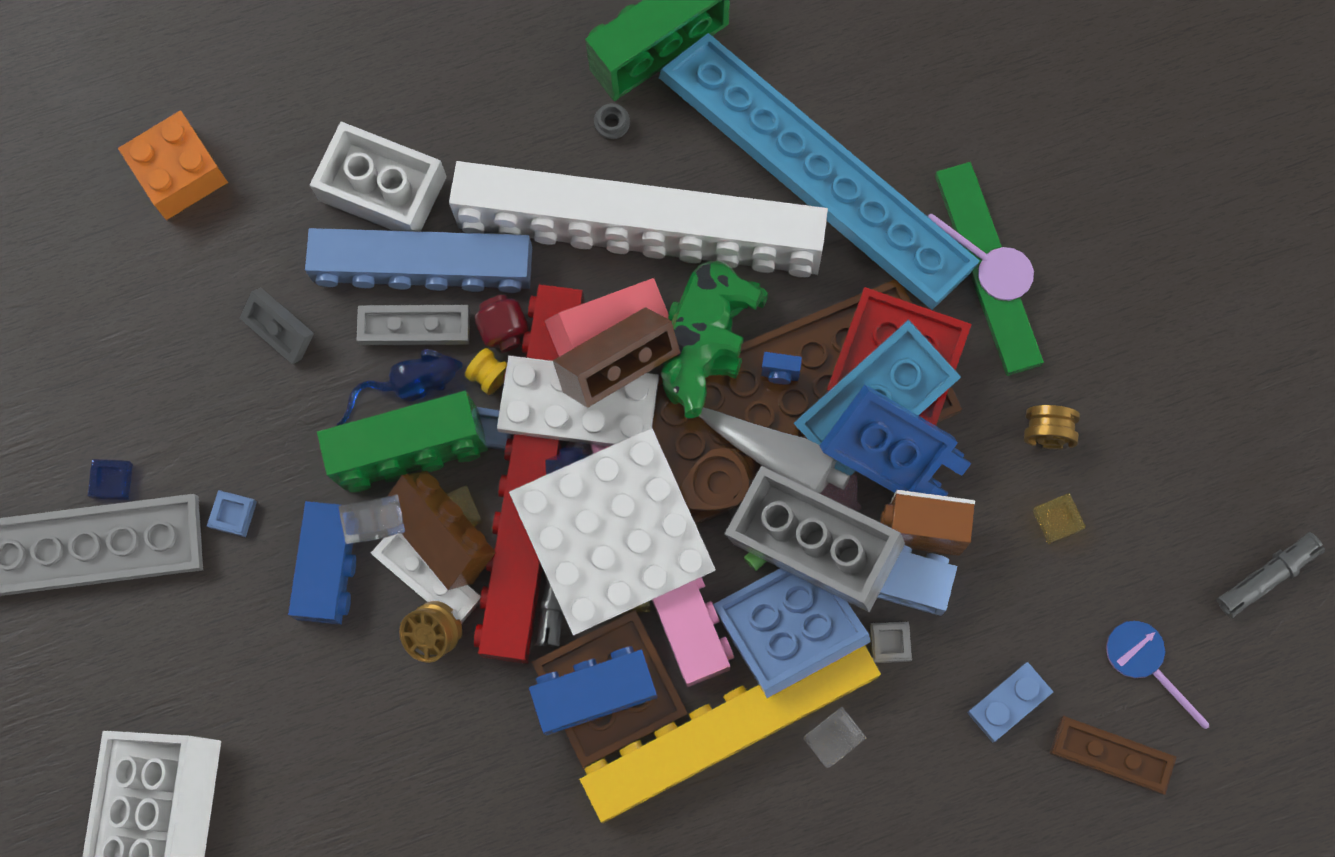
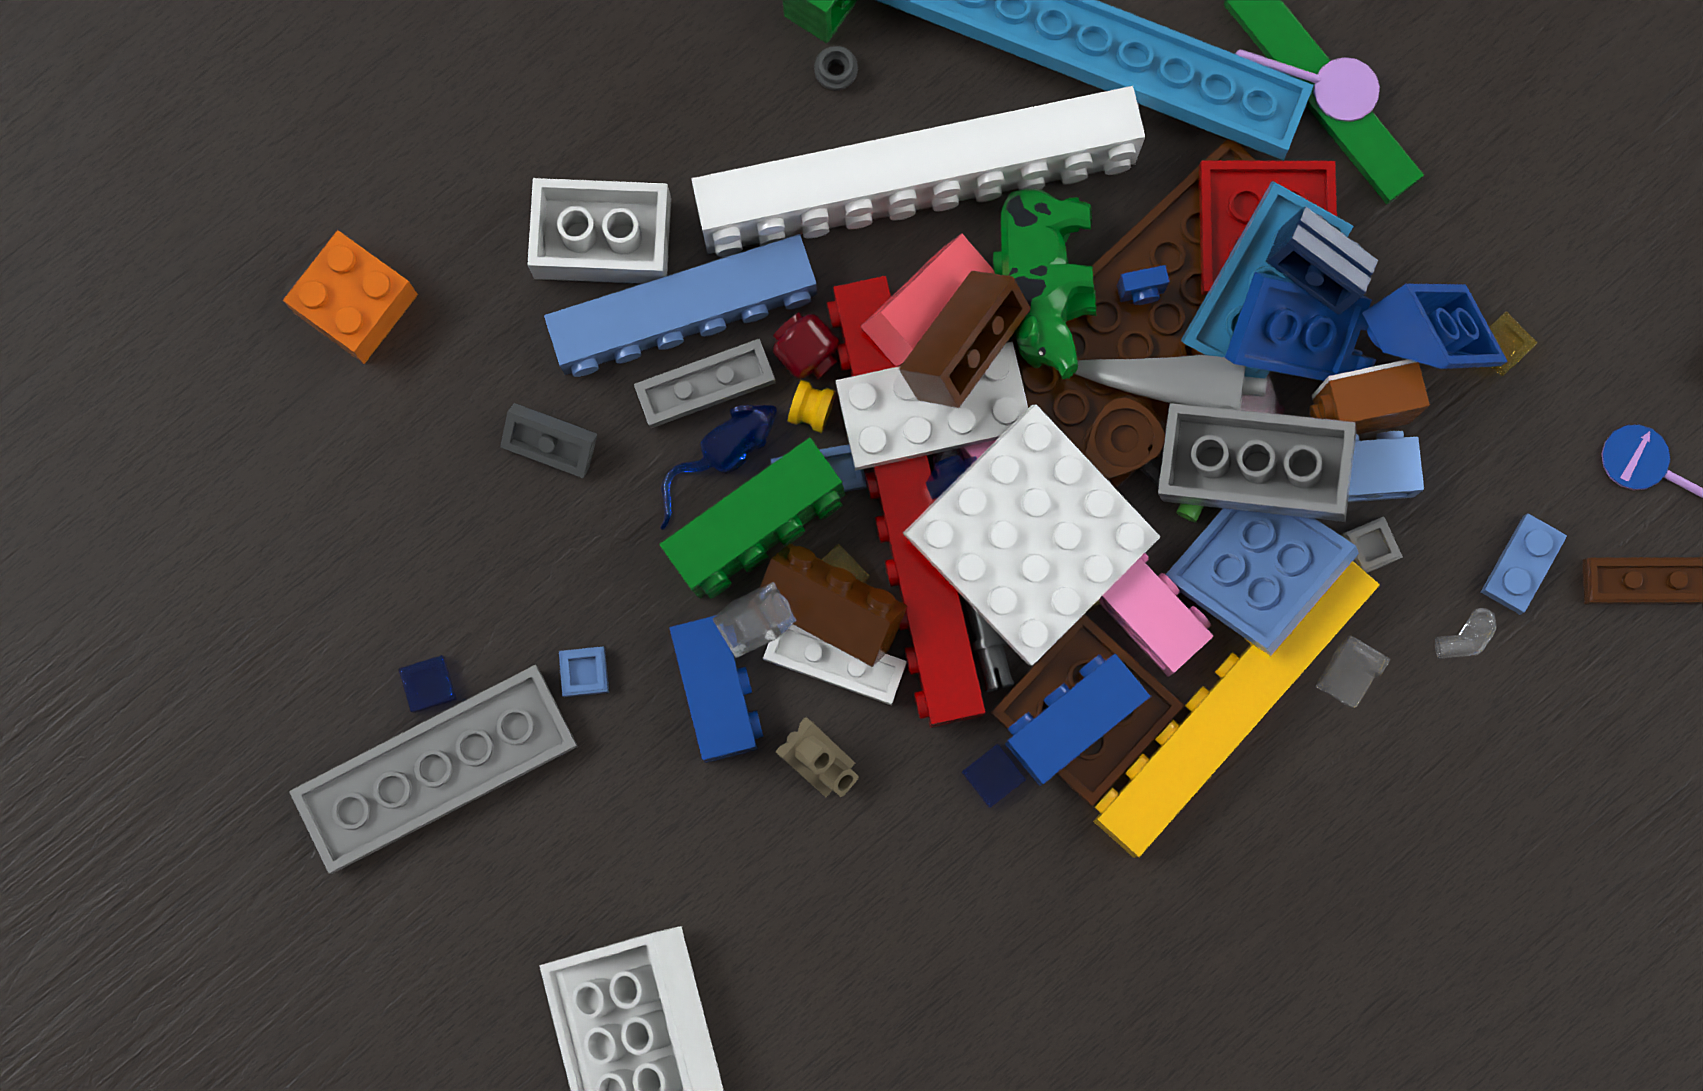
camera: 25 degrees left, 5 degrees up
(379, 648) = (818, 760): none -> dark tan hips
(431, 630) = (868, 719): pearl gold wheel -> none
(515, 714) = (993, 776): none -> clear blue tile
(922, 394) = (1322, 260): none -> dark blue brick
(944, 747) = (1471, 639): none -> clear arm
(999, 481) = (1434, 327): none -> blue slope
(1051, 426) = (1461, 244): pearl gold wheel -> none

